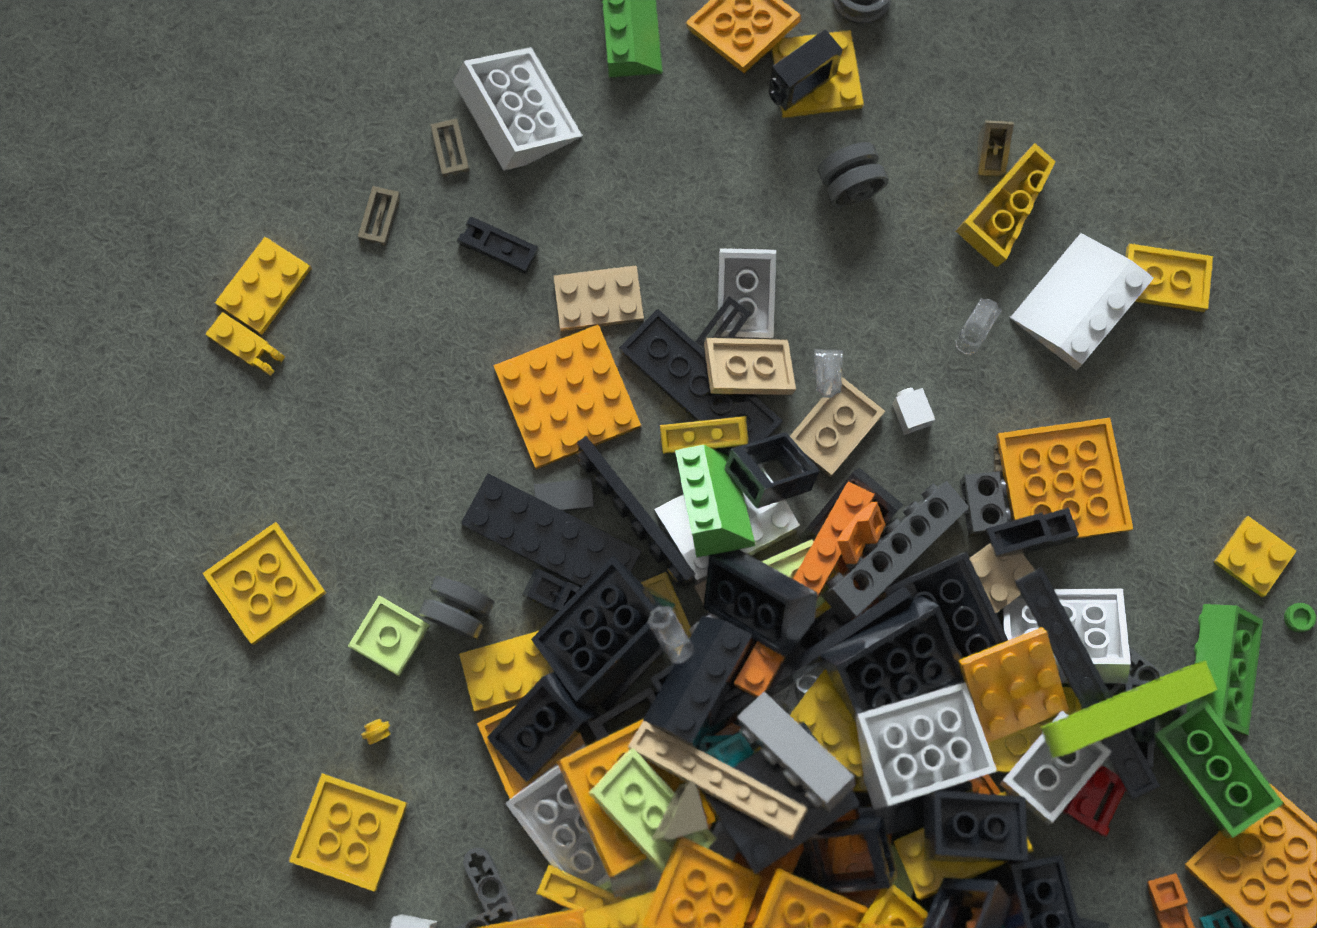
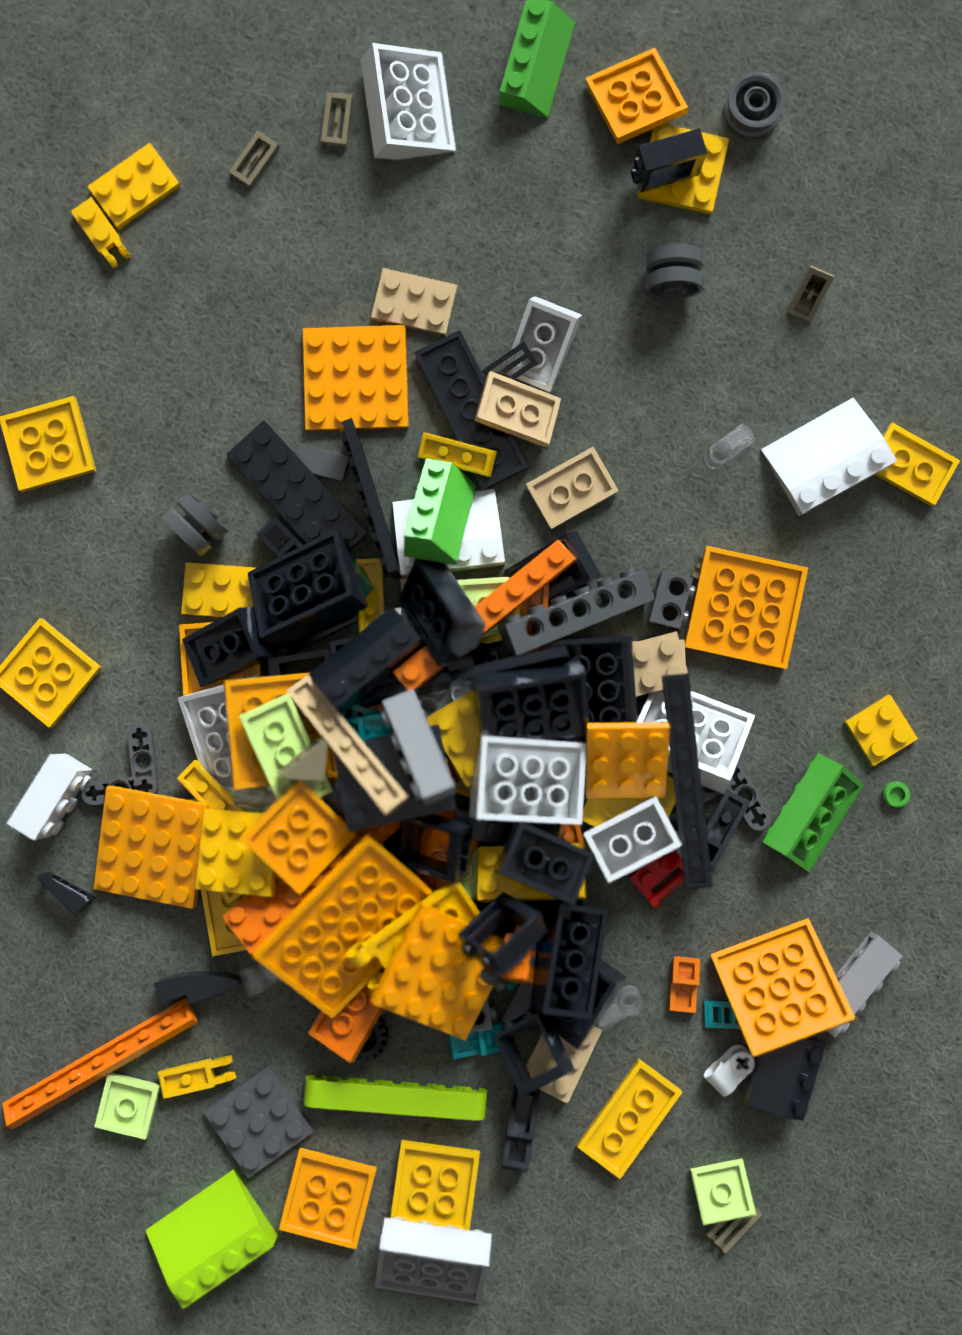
camera: 25 degrees right, 10 degrees up
(376, 731) = (95, 600): yellow plate -> none
(389, 635) = (134, 526): yellowish green plate -> none
(498, 245) = (346, 223): black plate -> none
(670, 634) = (354, 612): clear piece -> none
(744, 470) = (478, 512): black window -> none
(828, 371) = (583, 438): clear piece -> none
(861, 530) = (553, 584): orange slope -> none
(913, 410) = (642, 499): white brick -> none
(1002, 213) = (791, 354): yellow wedge -> none
(1032, 533) = (697, 641): black slope -> none
(1128, 709) = (710, 816): lime beam -> none
(1217, 770) = (767, 891): bright green slope -> none

